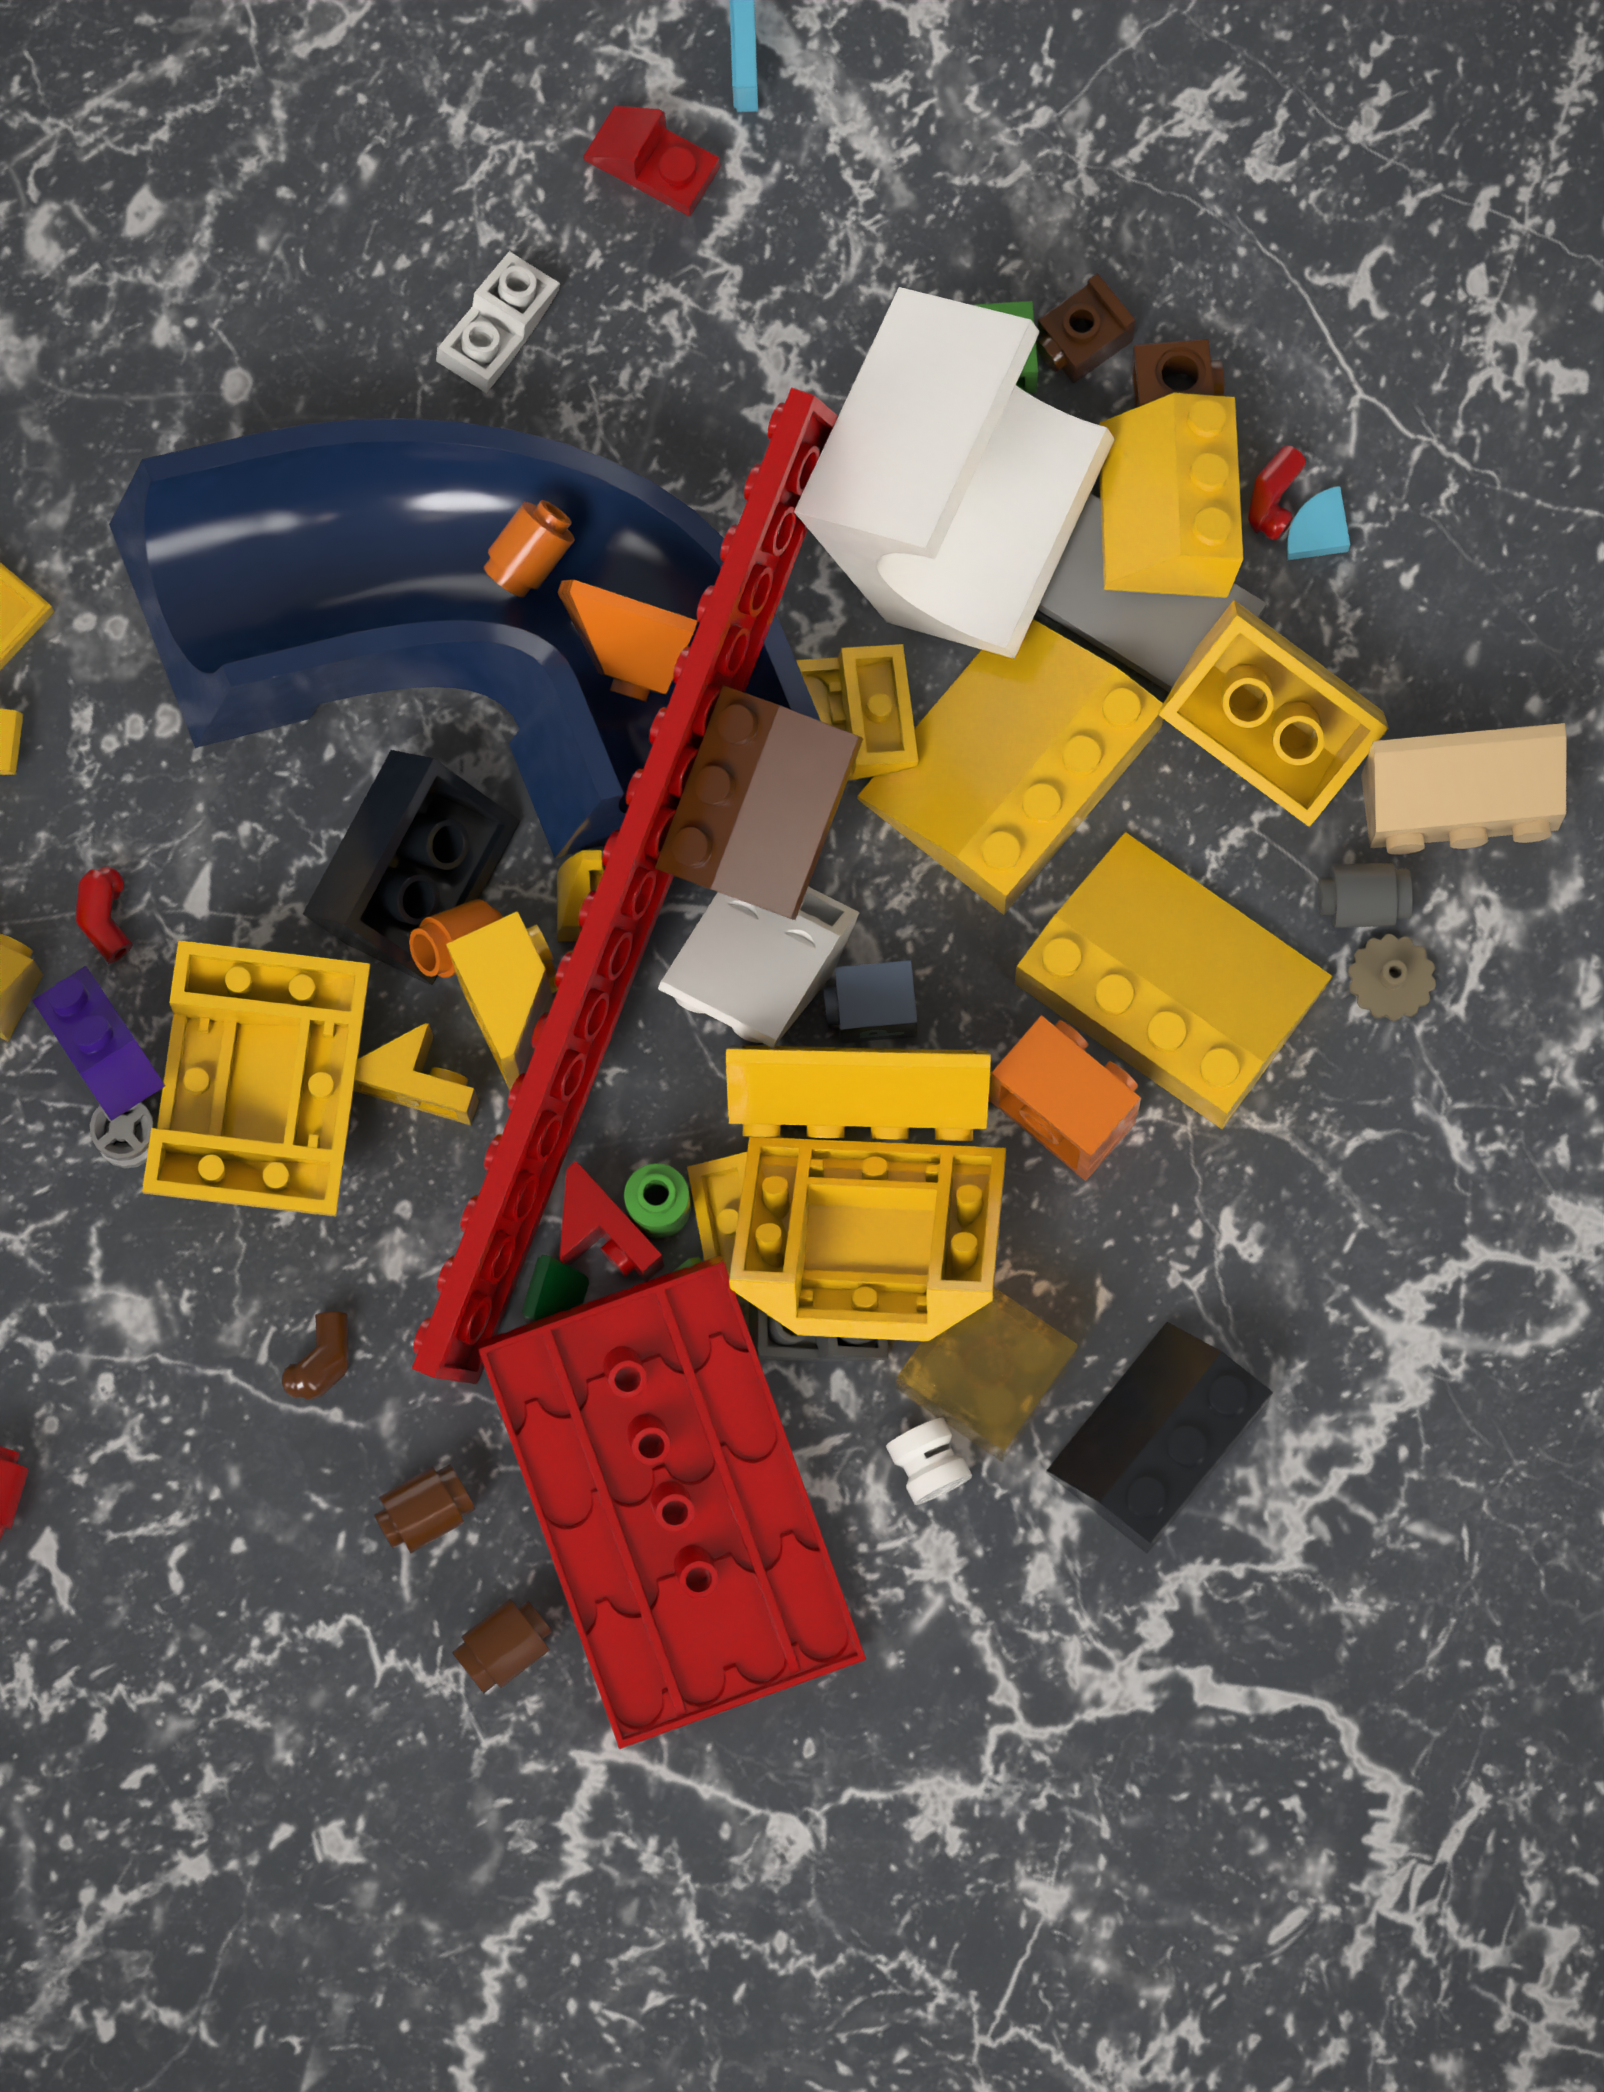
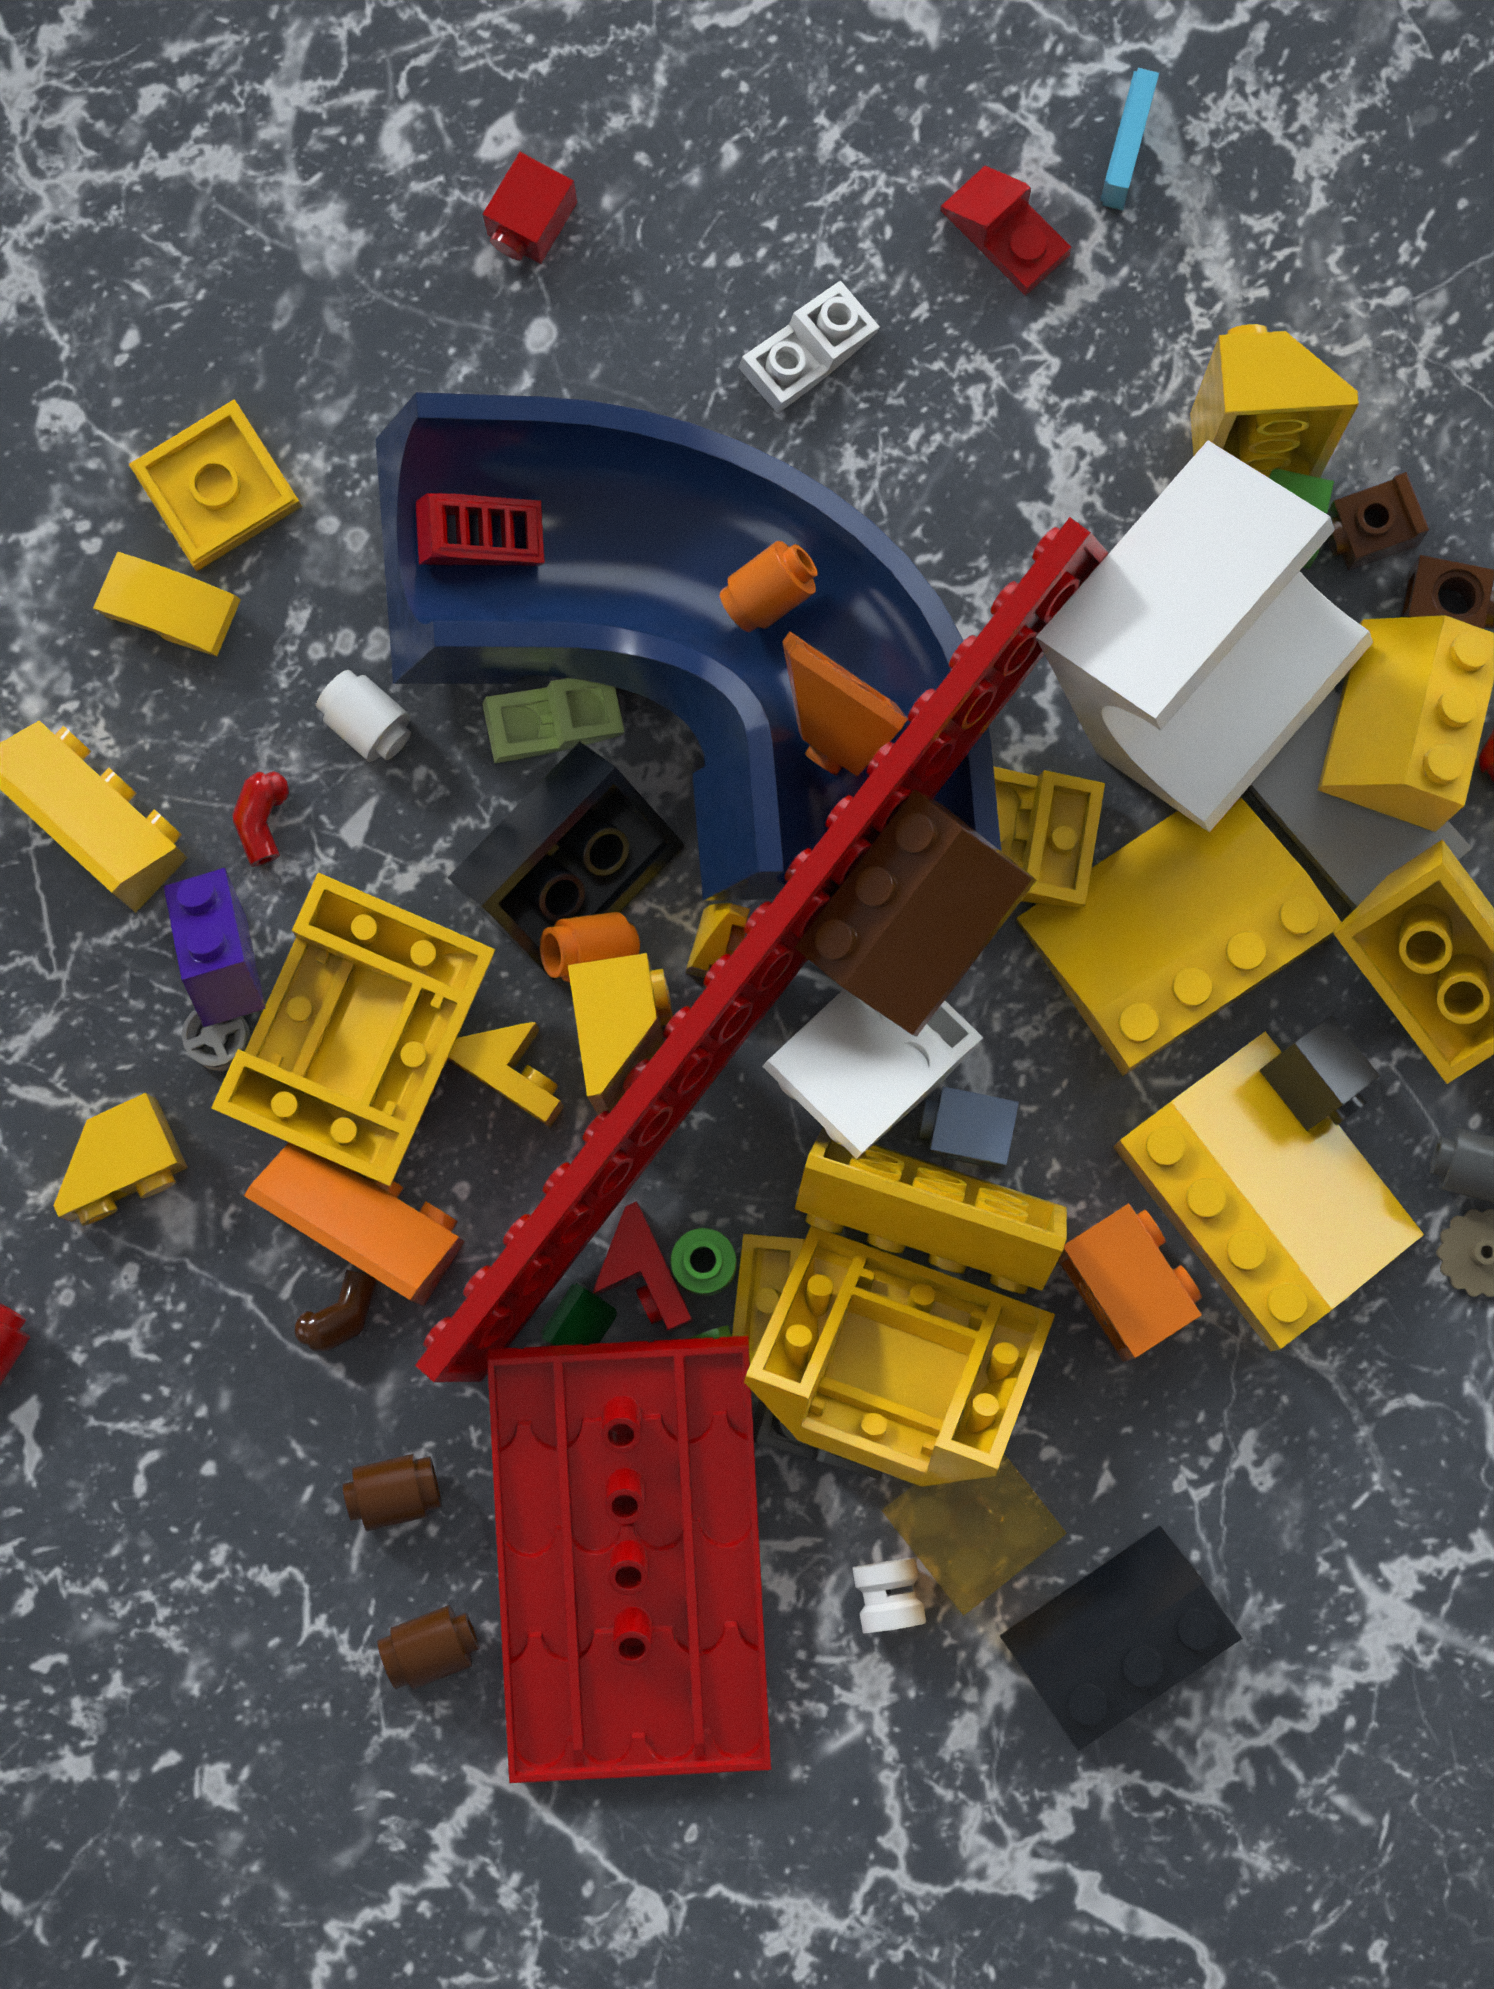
camera: 20 degrees right, 5 degrees up
(62, 1273) = (116, 1156): none -> yellow slope
(176, 788) = (364, 716): none -> white brick
(191, 269) = (529, 209): none -> red brick
(196, 596) = (432, 530): none -> red slope
(315, 1261) = (359, 1220): none -> orange slope
(356, 739) = (551, 718): none -> yellowish green slope
(950, 238) = (1271, 402): none -> yellow slope
(1188, 853) = (1321, 1075): none -> black brick

